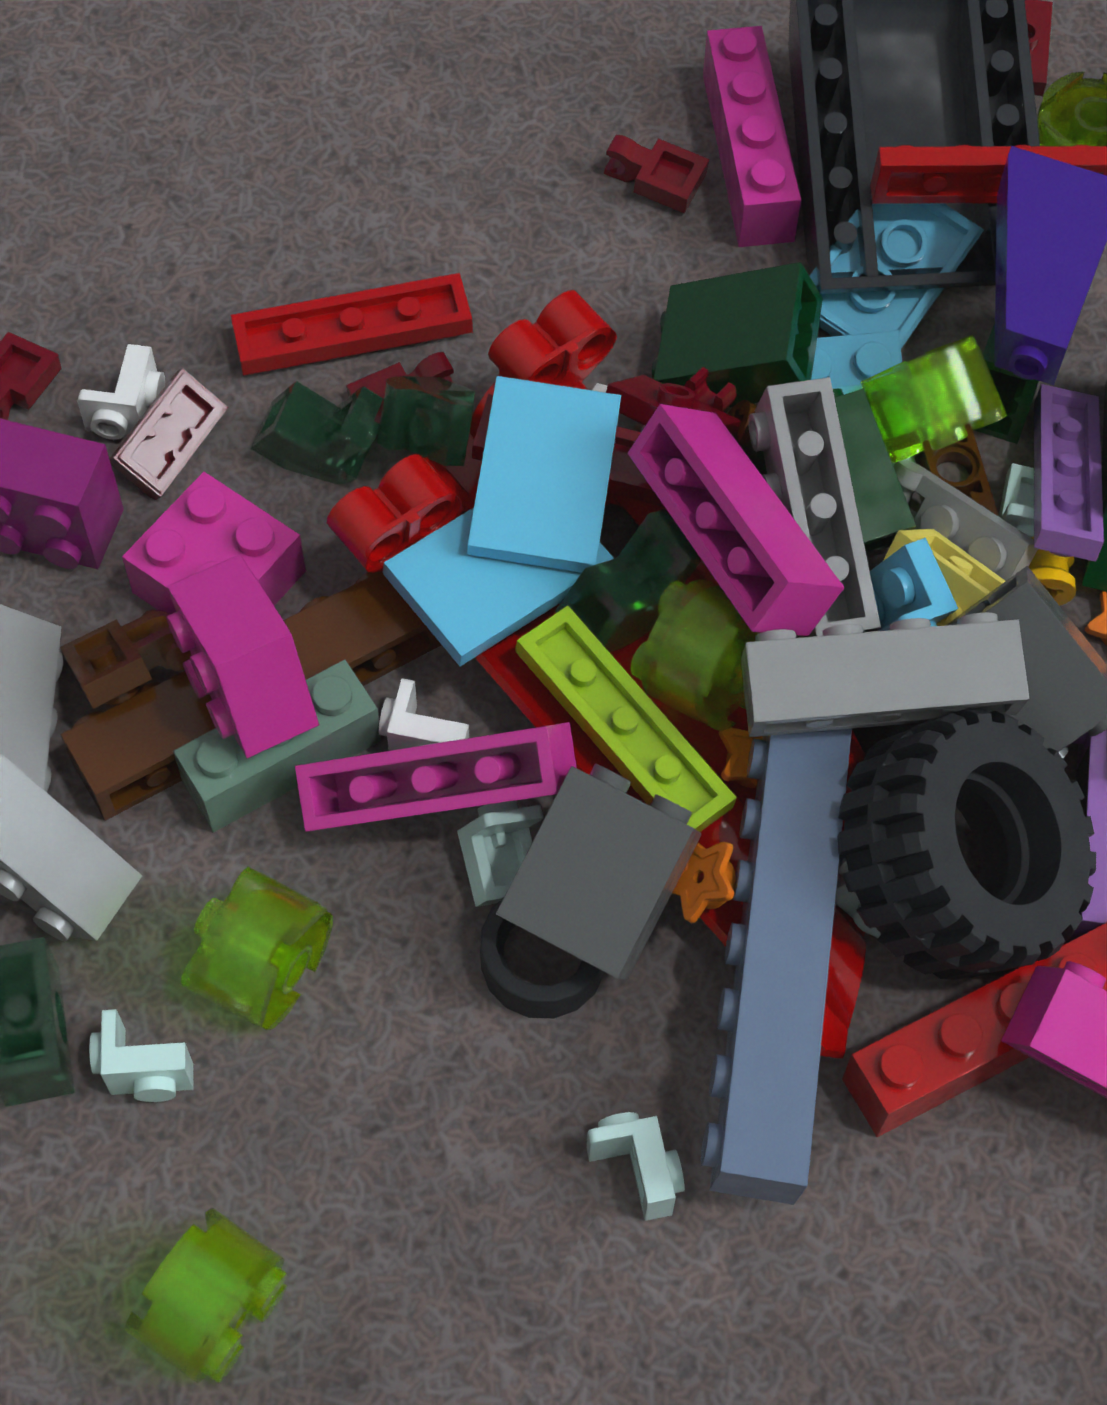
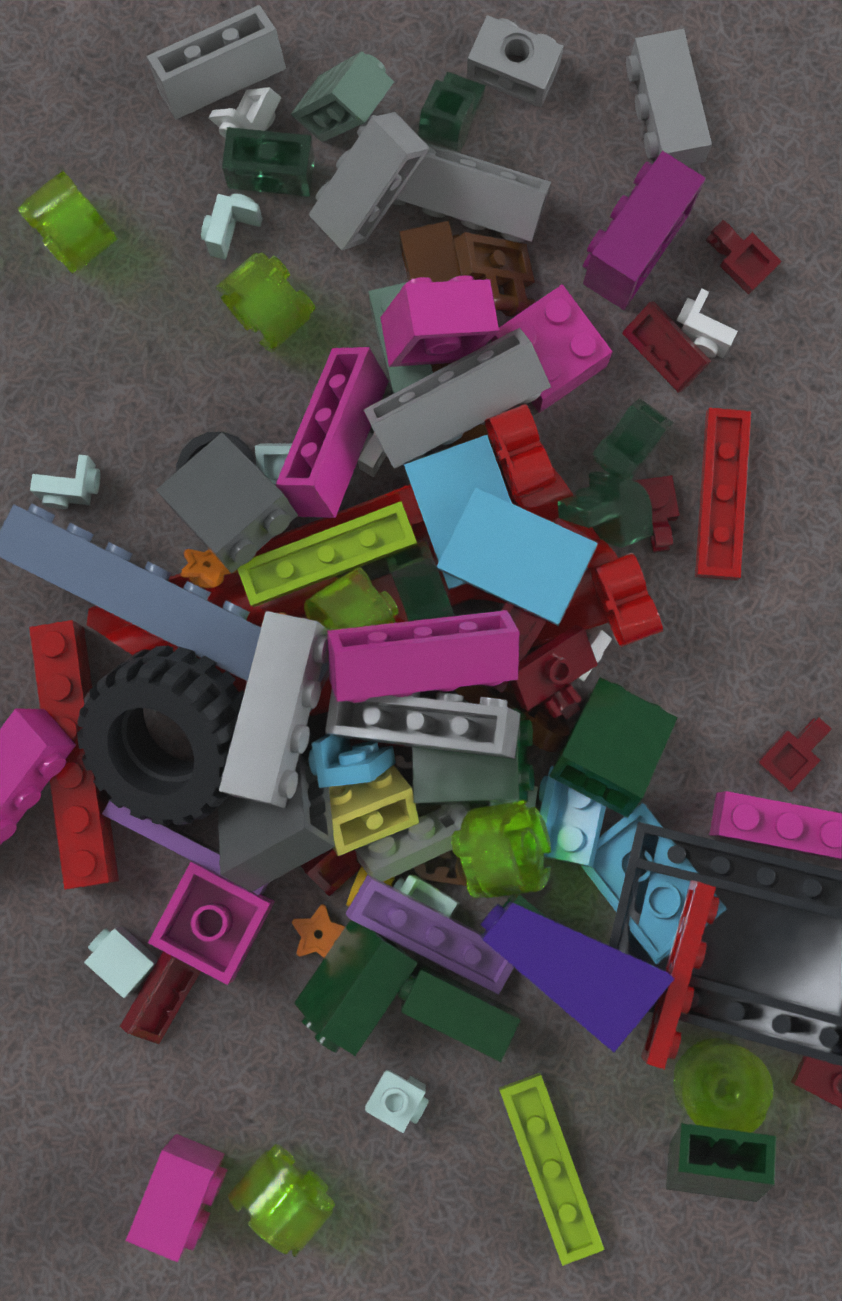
camera: 110 degrees right, 20 degrees up
(346, 616) = (458, 398): none -> light grey brick

